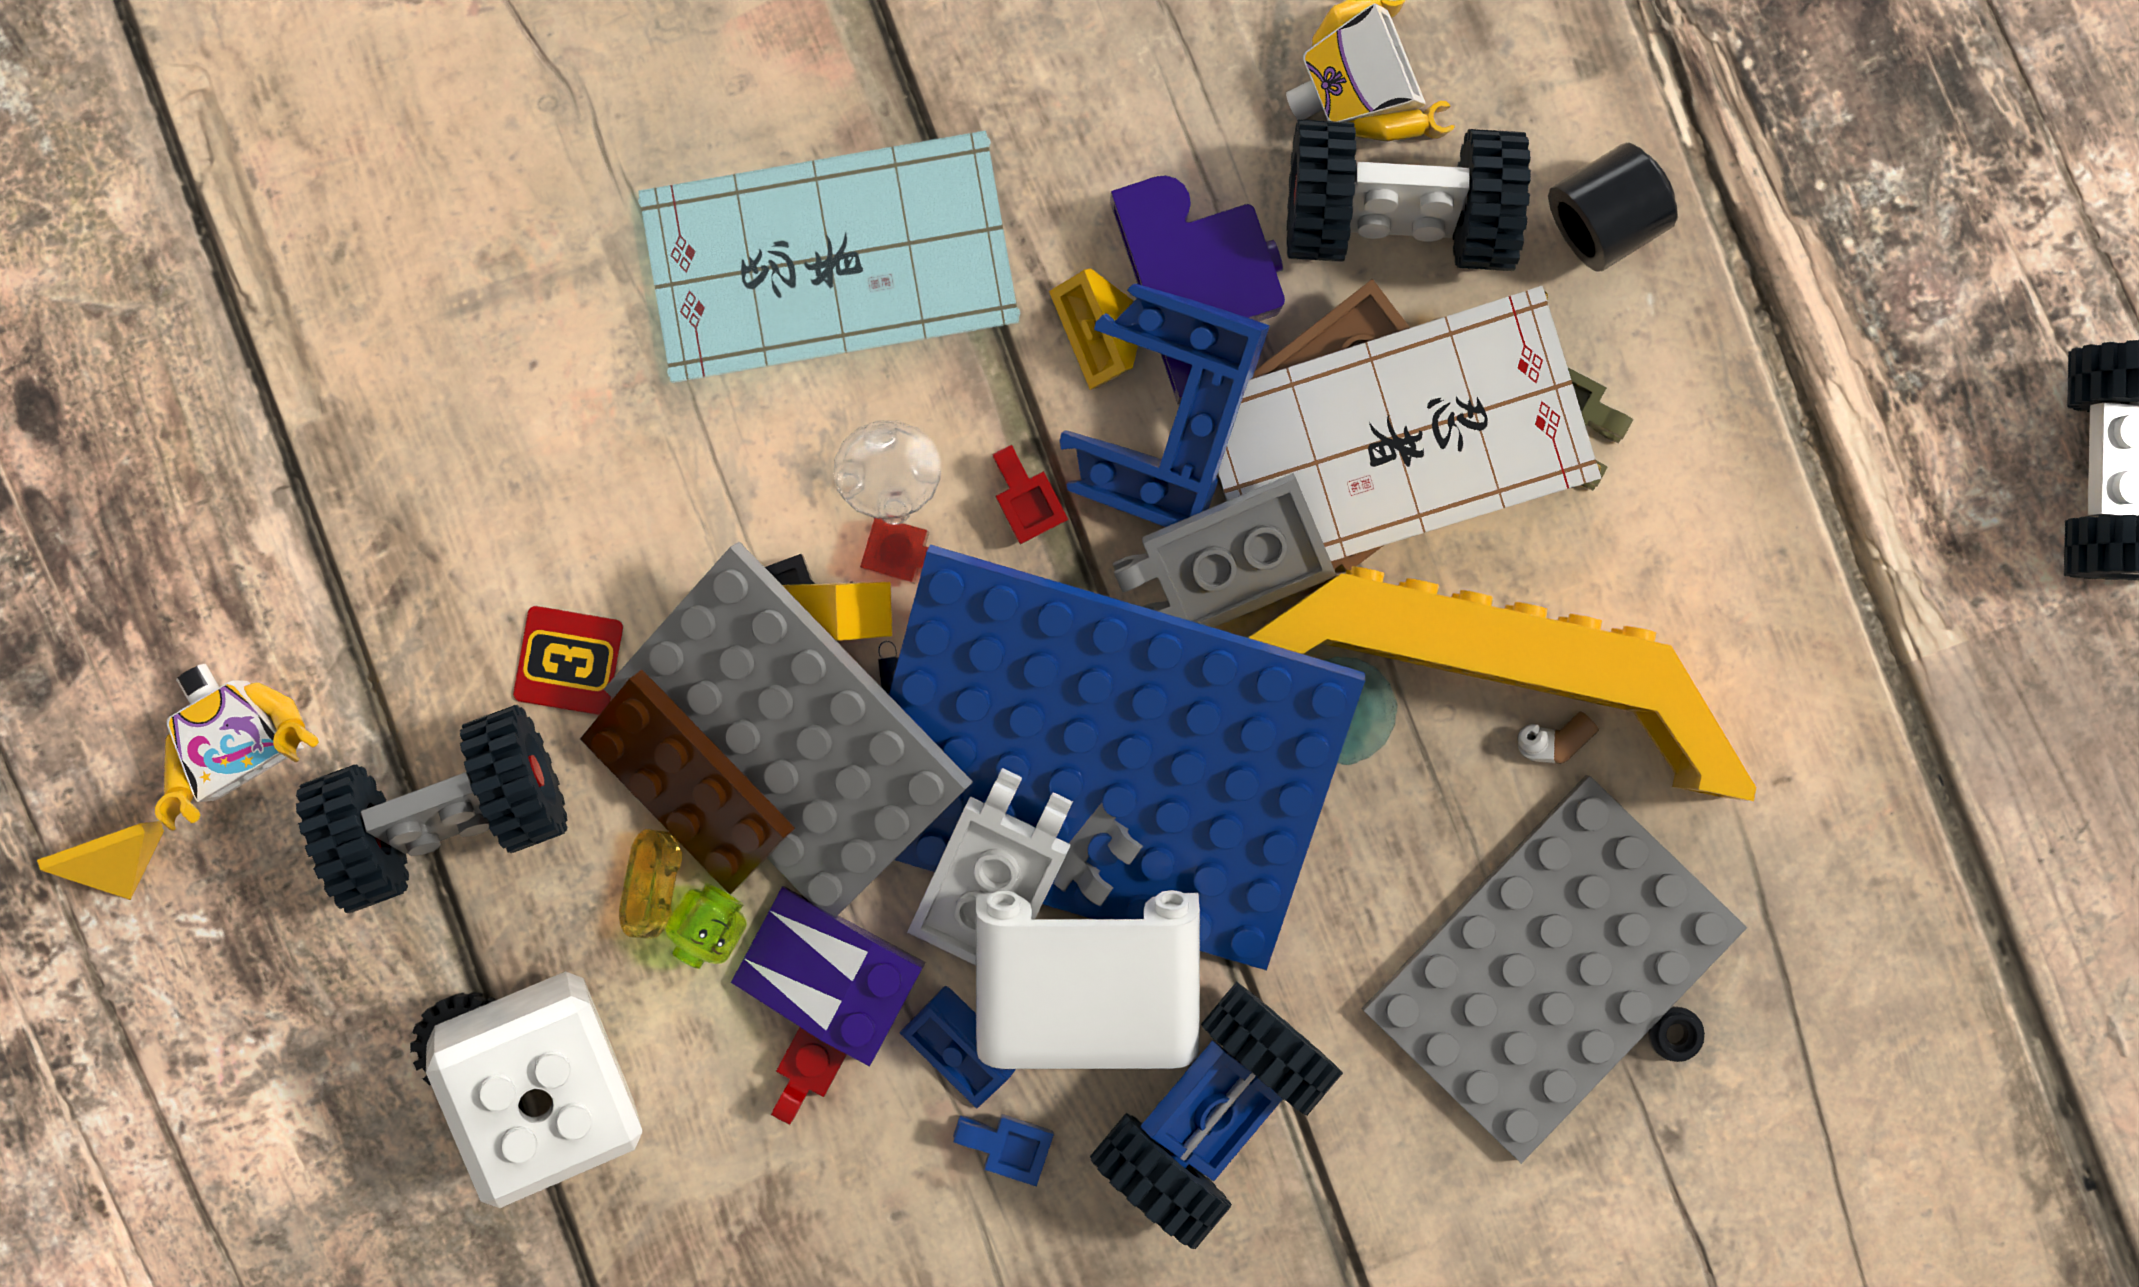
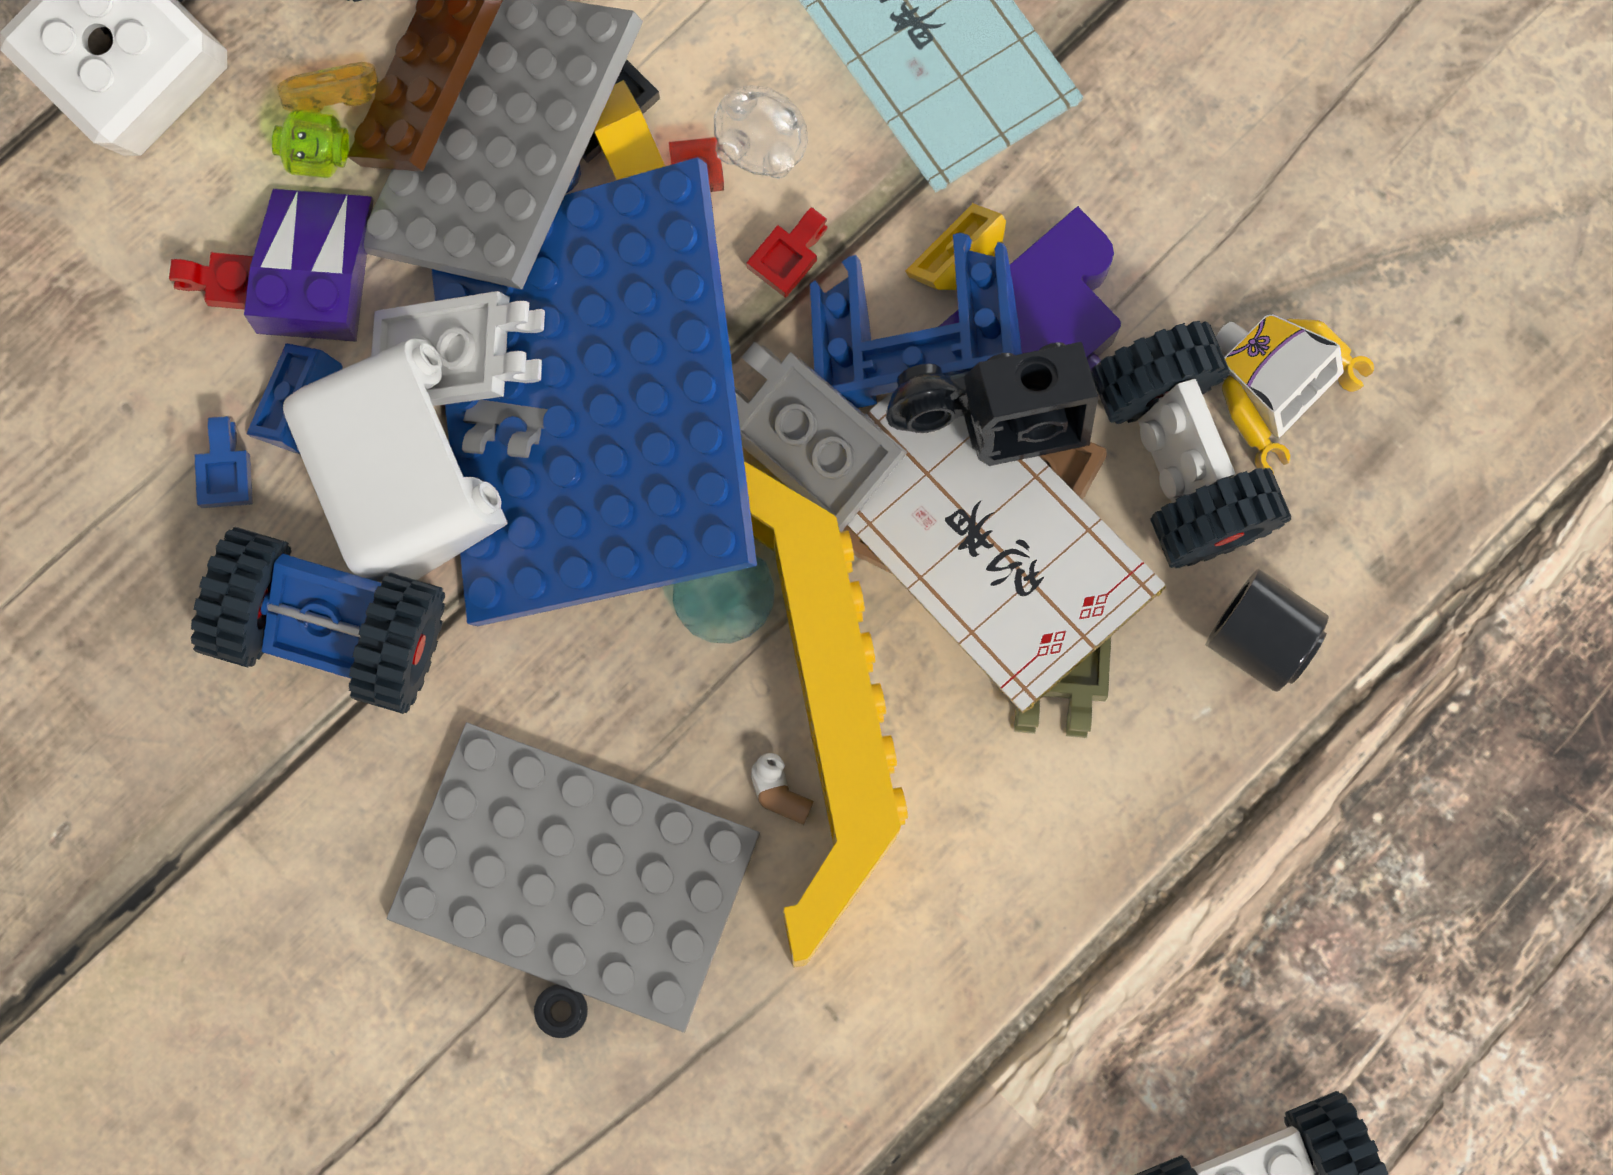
camera: 60 degrees right, 10 degrees down
(1296, 367) = (1009, 403): none -> black brick

